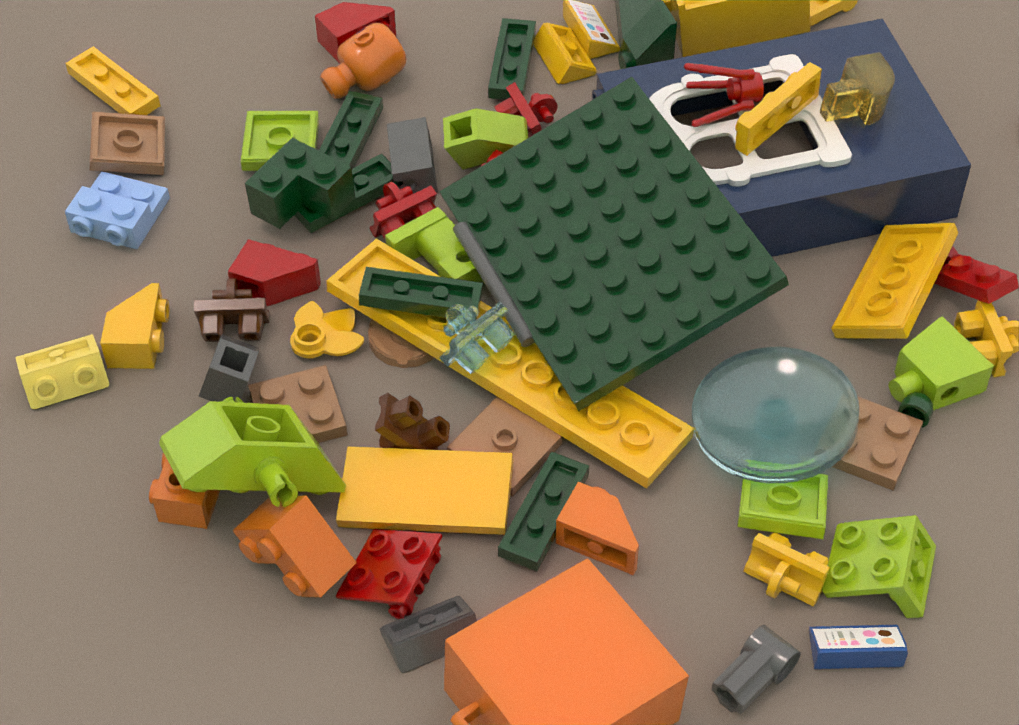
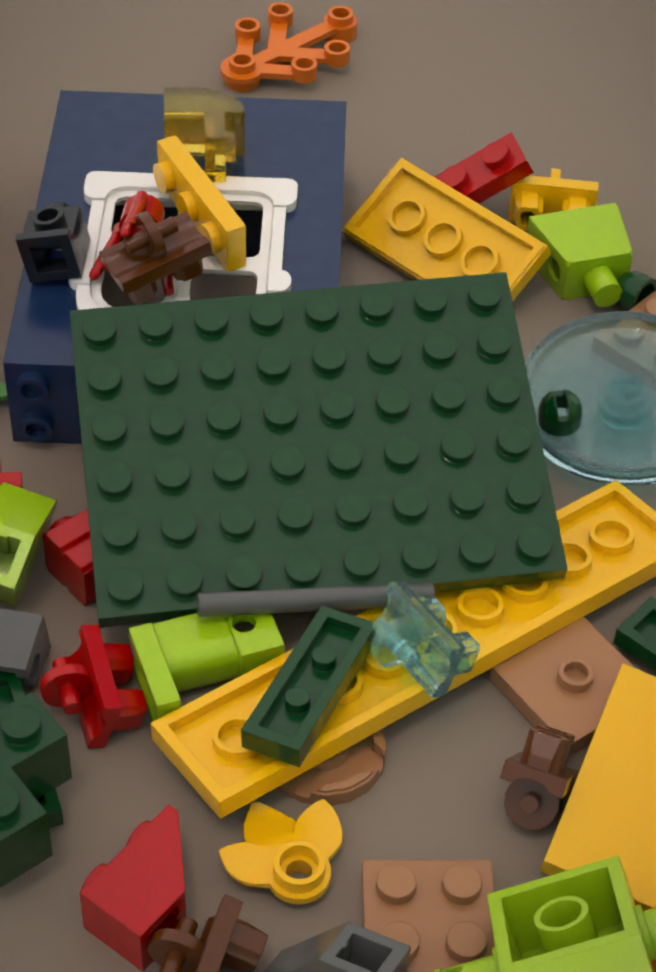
camera: 75 degrees left, 5 degrees down
(698, 94) = (154, 253): none -> reddish brown hips
(700, 48) = (49, 229): none -> black brick
(728, 374) = (548, 413): none -> dark green hinge

